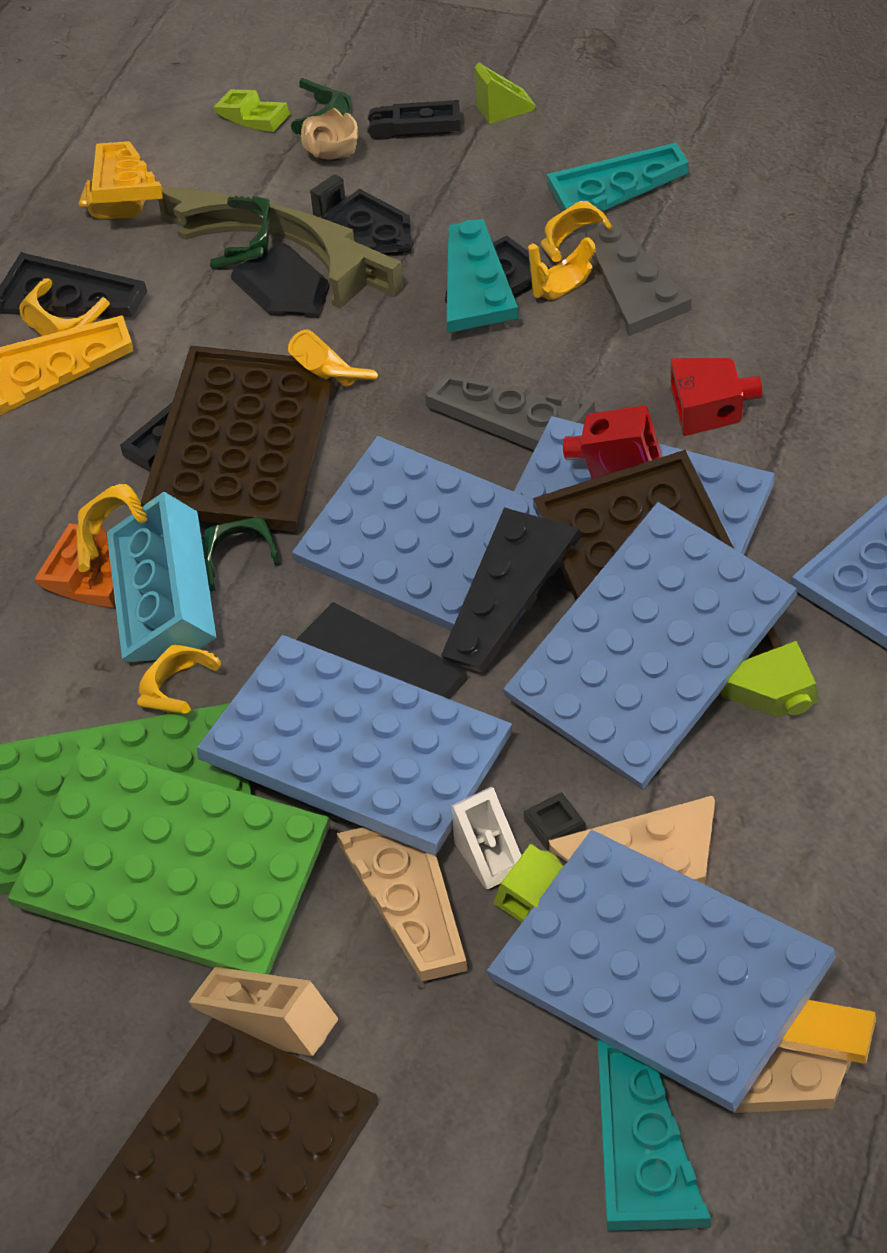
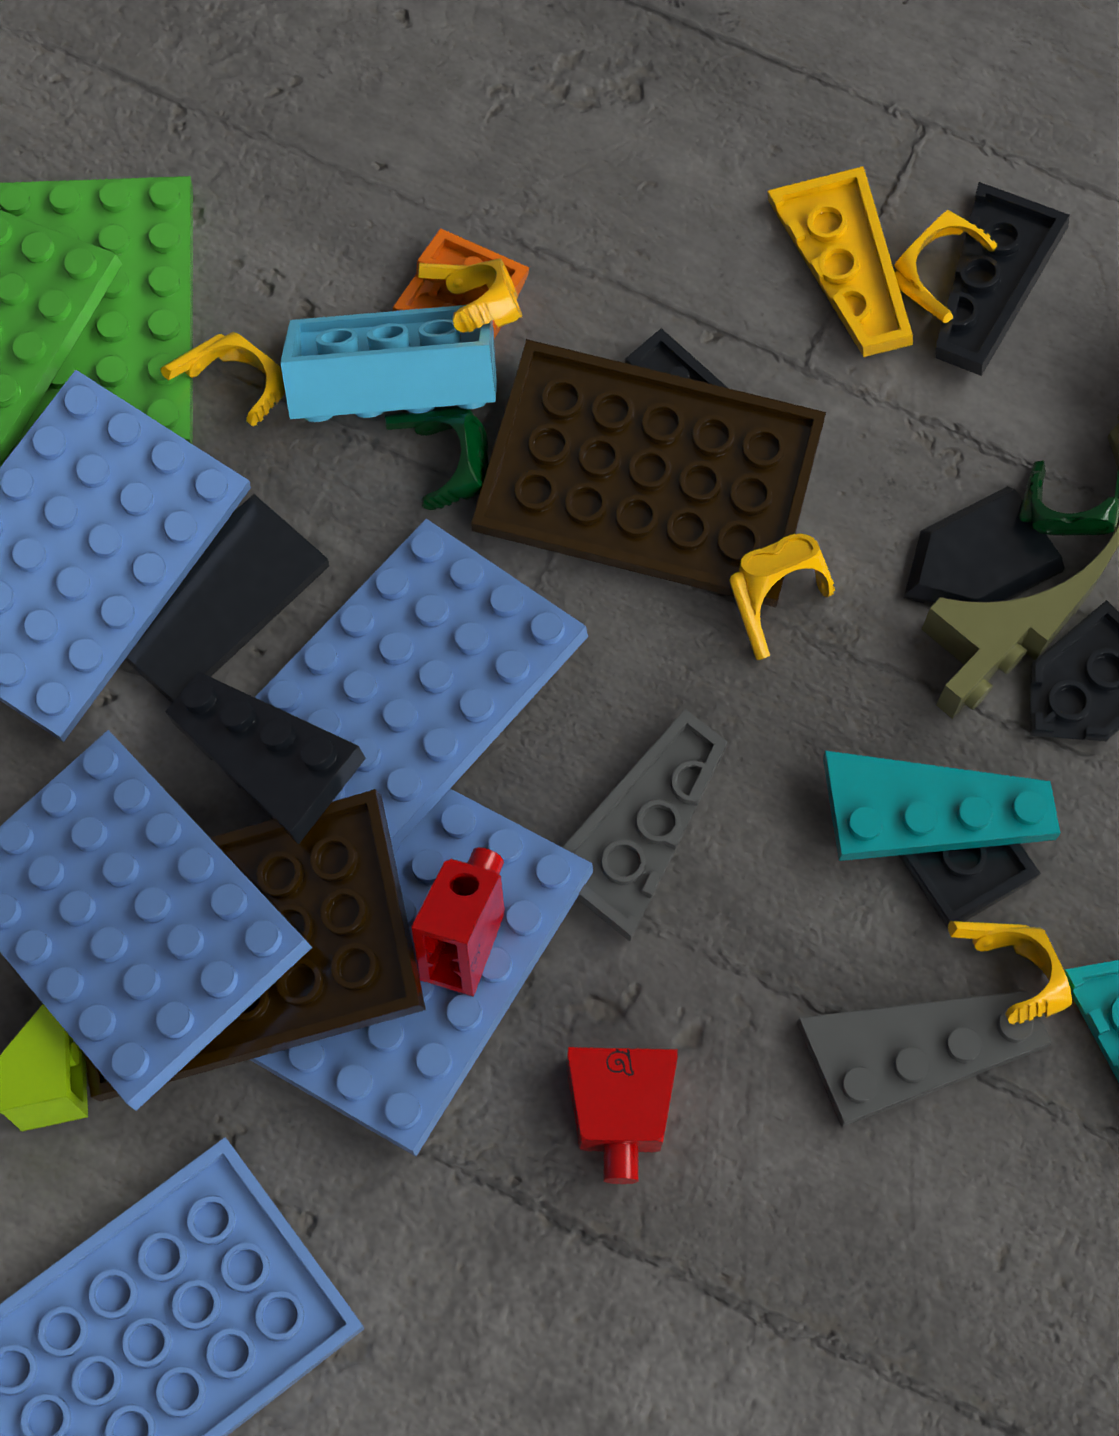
camera: 90 degrees right, 20 degrees up
(564, 276) = (924, 928): yellow helmet -> none

